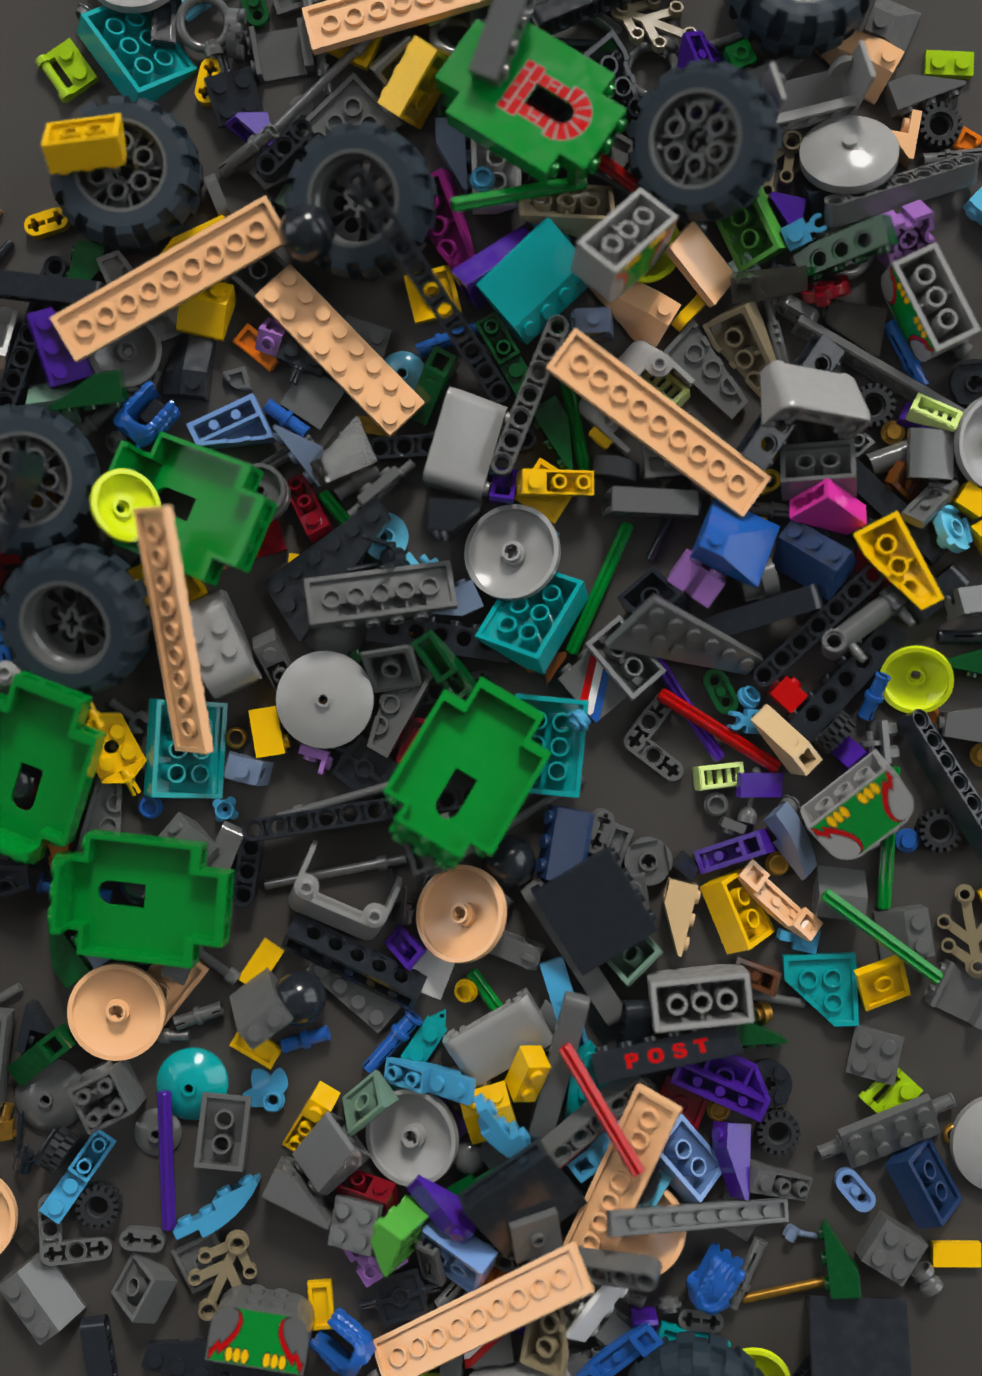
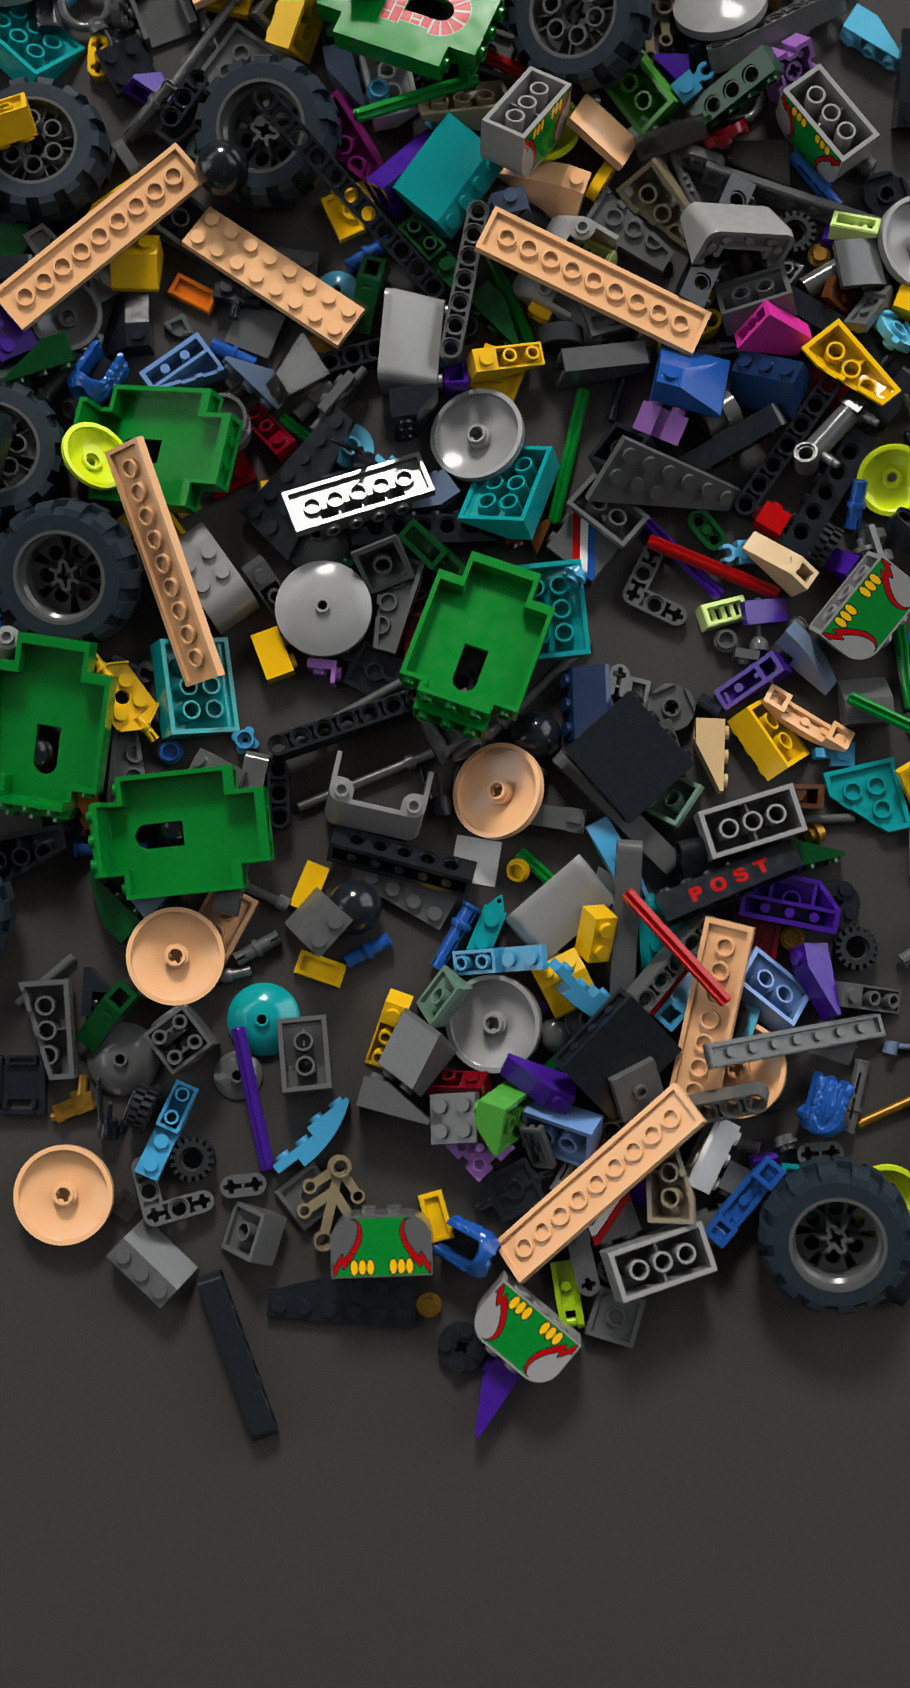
camera: 15 degrees left, 5 degrees down
(228, 741) = (242, 677): pearl gold piece -> none
(248, 769) = (260, 694): sand blue torso -> none
(268, 1085) = (338, 1005): dark azure plate -> none
(270, 337) = (203, 280): medium lavender bracket -> none
(405, 947) = (450, 838): dark purple slope -> none
(749, 697) = (735, 530): dark azure plate -> none
(776, 864) = (797, 686): pearl gold plate -> none

